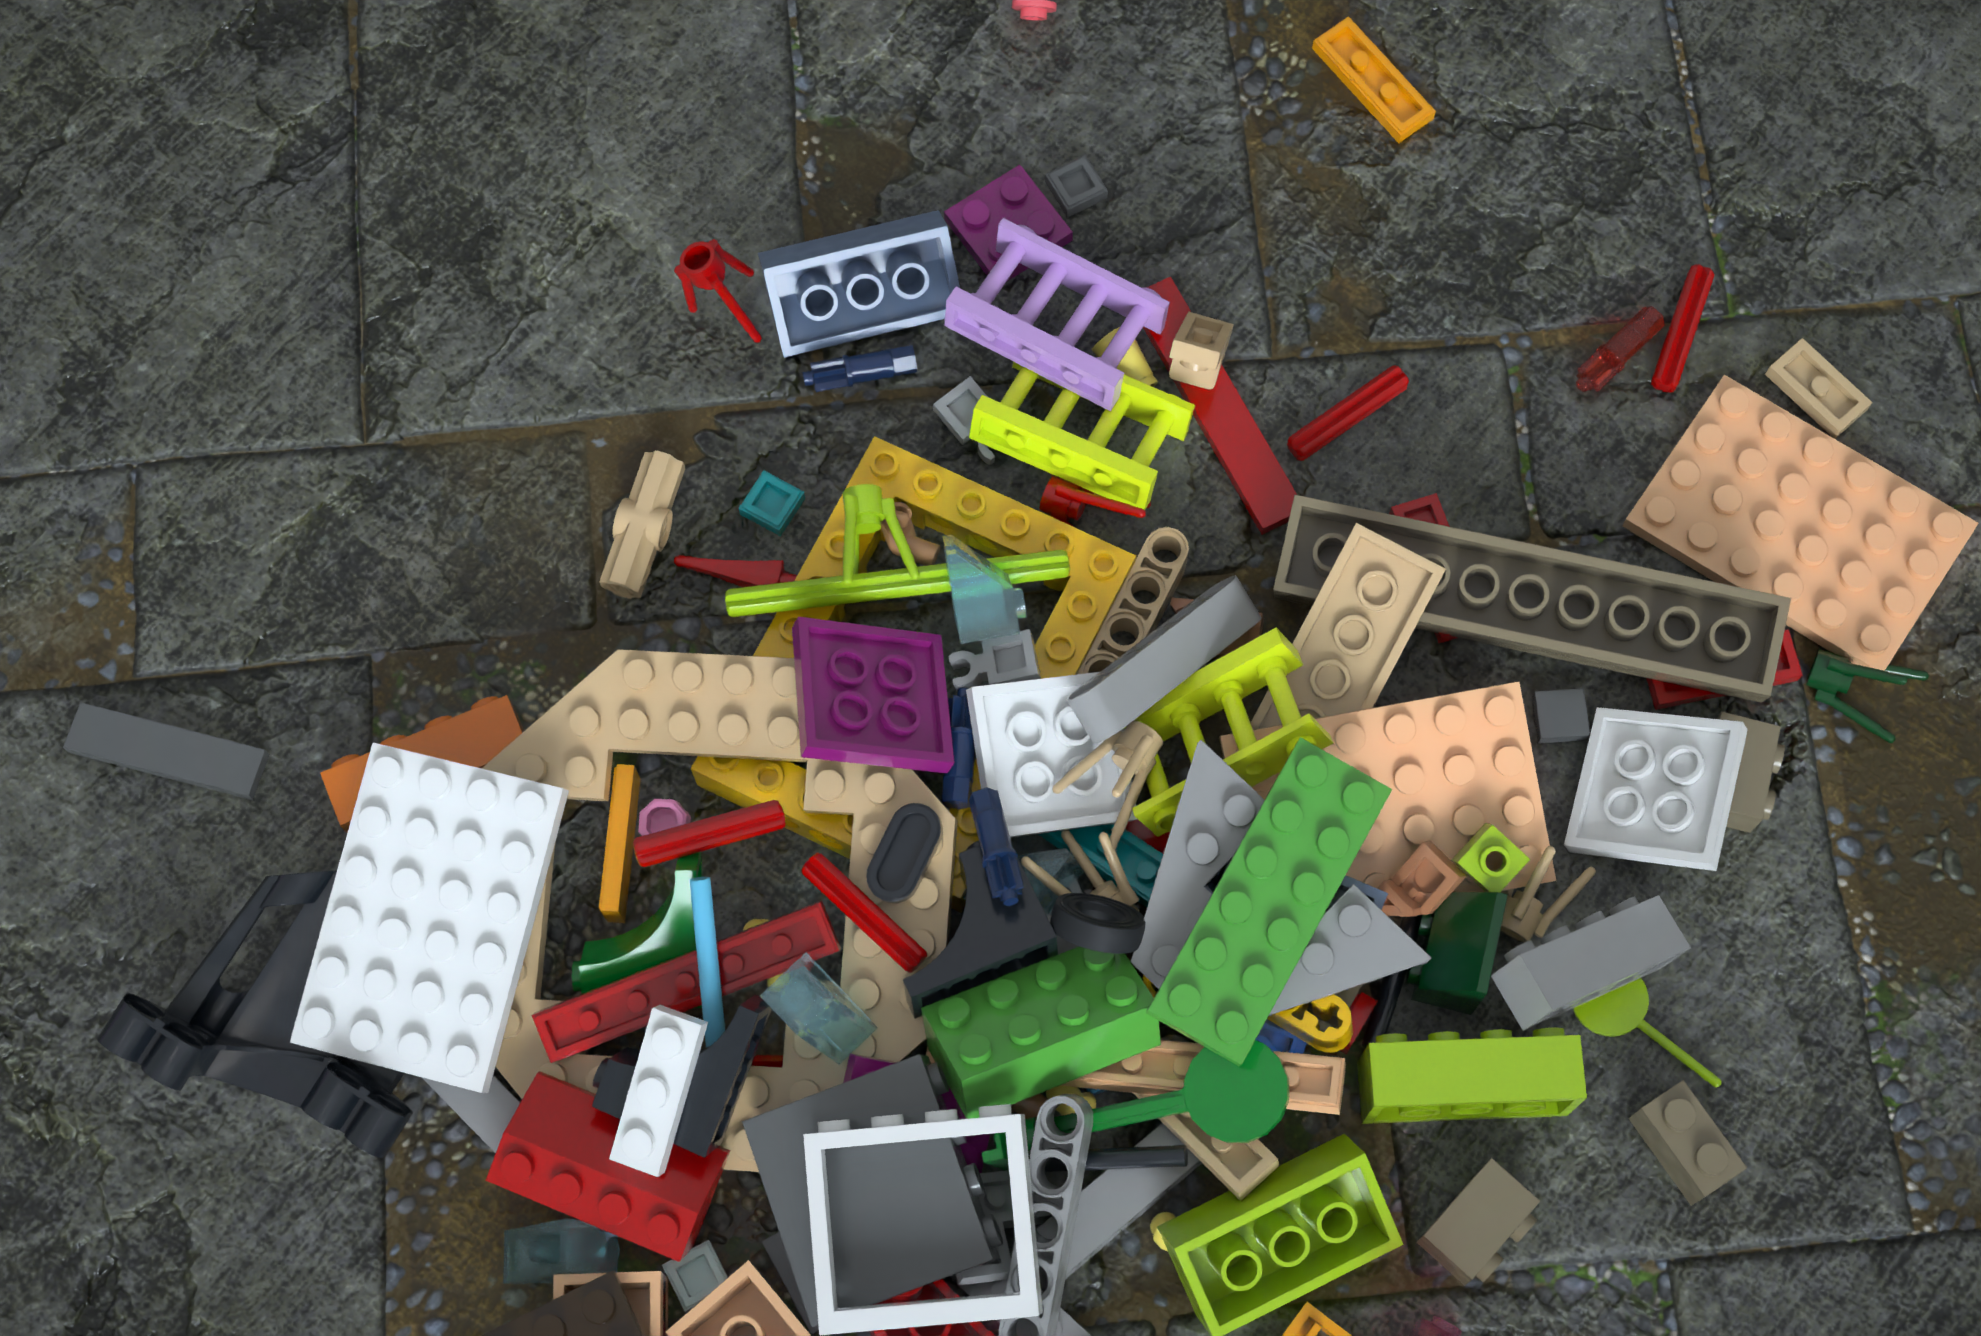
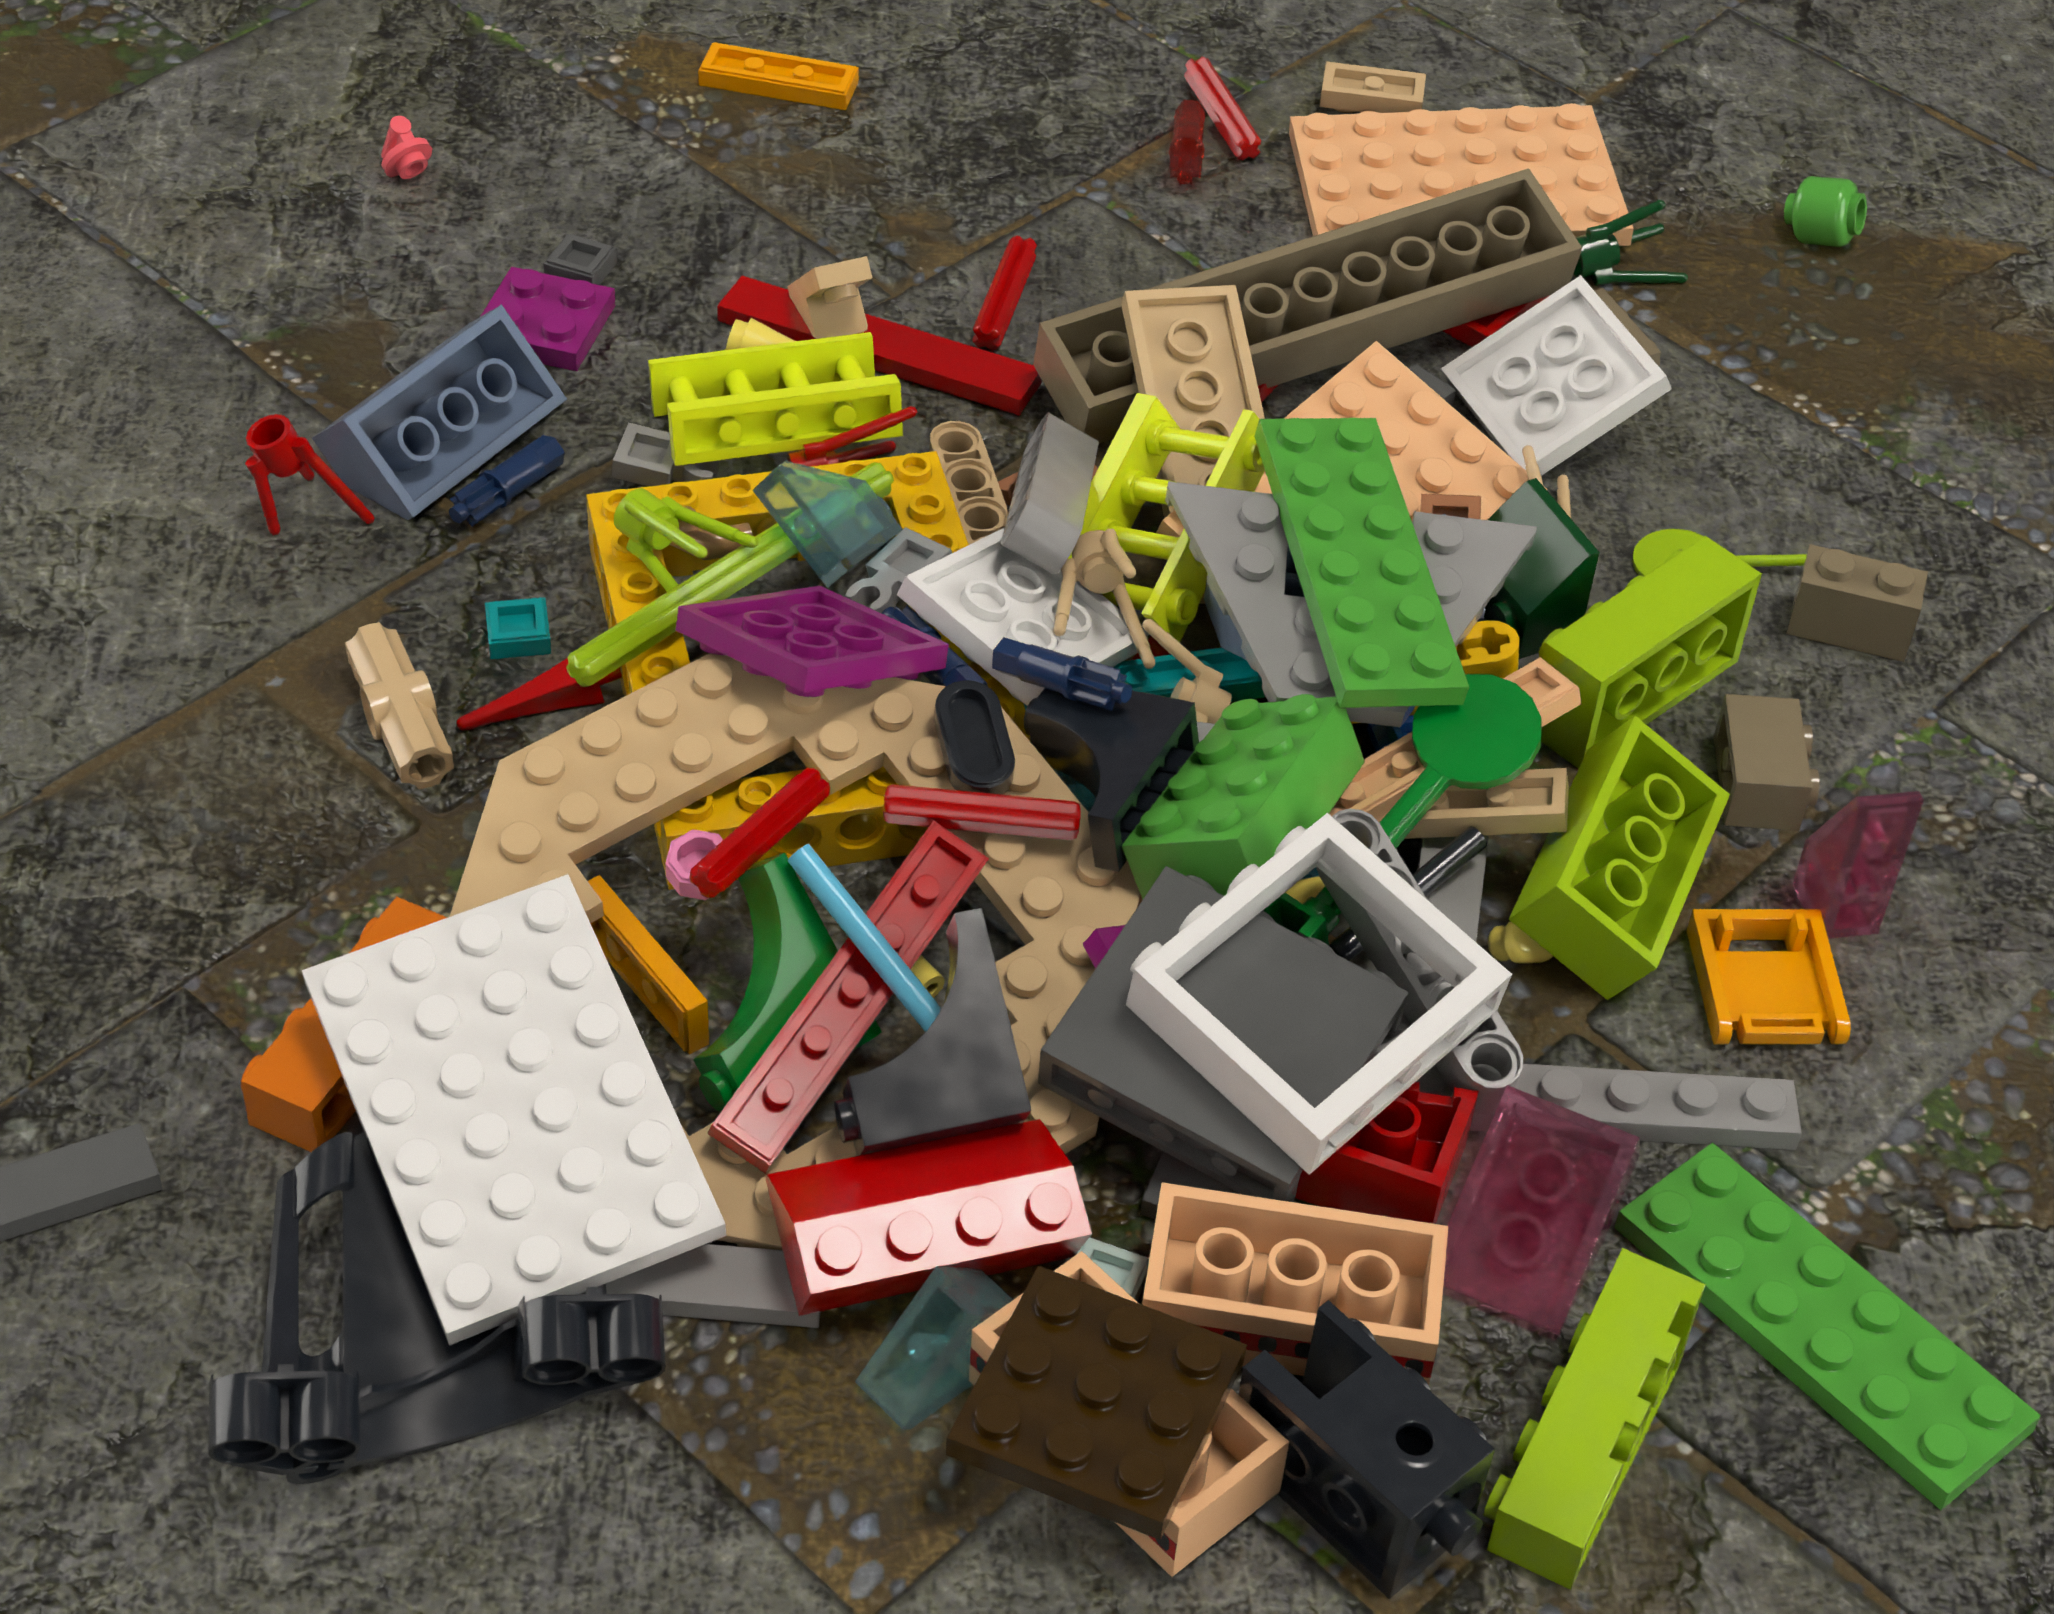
camera: 45 degrees left, 25 degrees down
(658, 1090) = (933, 1062): white plate -> none
(818, 1009) = (1023, 905): clear light blue slope -> none
(1038, 351) = (675, 351): lavender fence -> none
(1097, 923) = (1220, 680): black tyre -> none
(1473, 856) = (1489, 473): lime plate -> none
(1588, 961) = (1644, 504): light grey brick -> none

